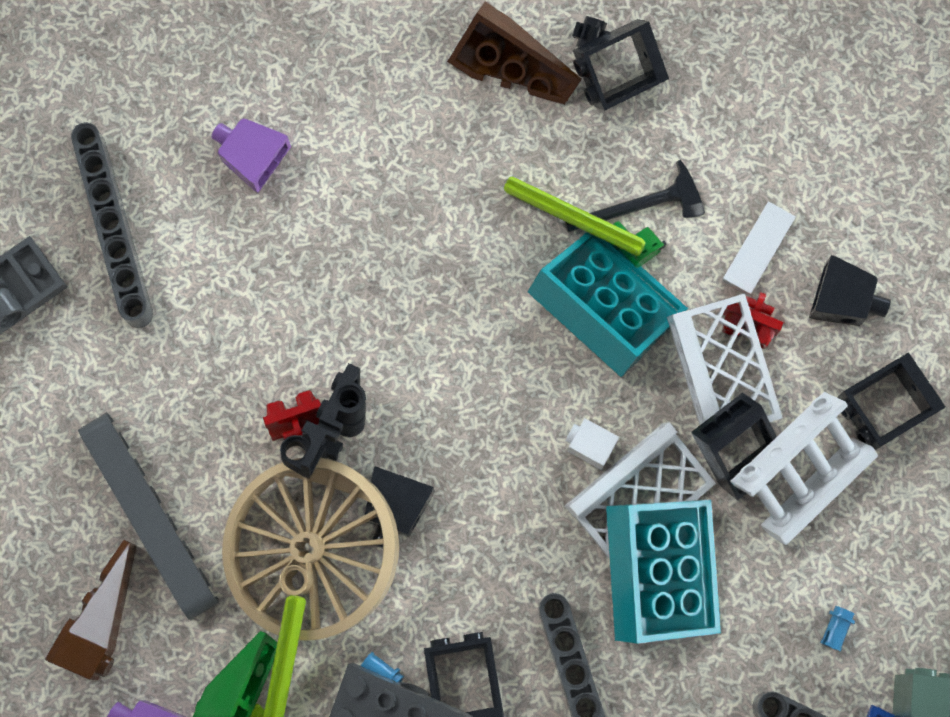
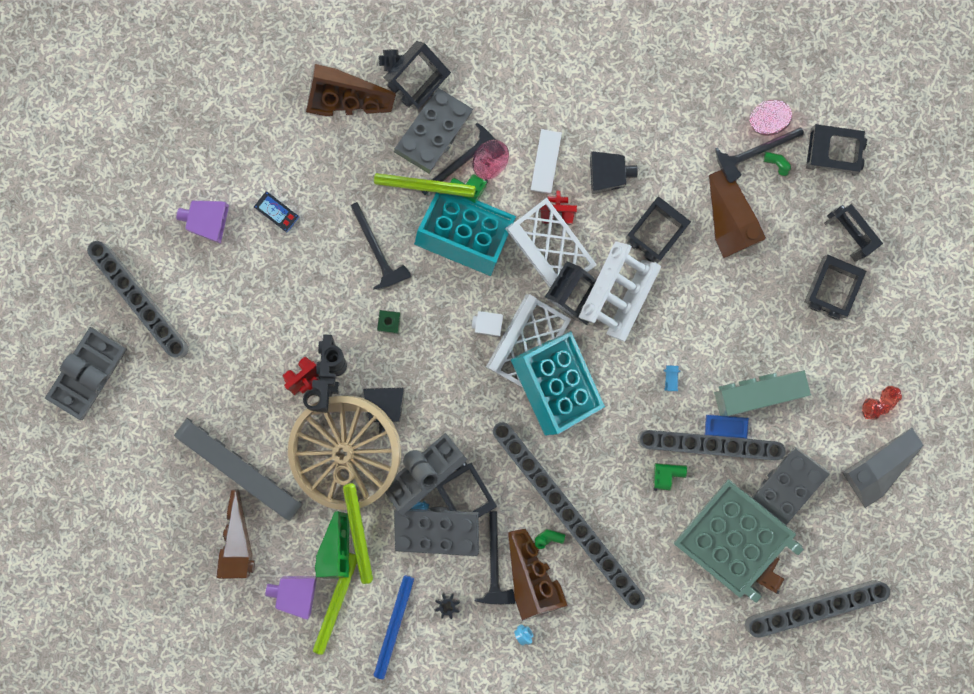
camera: 25 degrees left, 10 degrees up
(352, 178) = (276, 211): none -> tile
(414, 625) = (424, 473): none -> dark grey plate
(453, 397) = (394, 327): none -> dark green plate
(475, 325) = (389, 276): none -> black piece
(614, 147) = (433, 130): none -> dark grey plate
(681, 214) = (490, 159): none -> clear pink piece

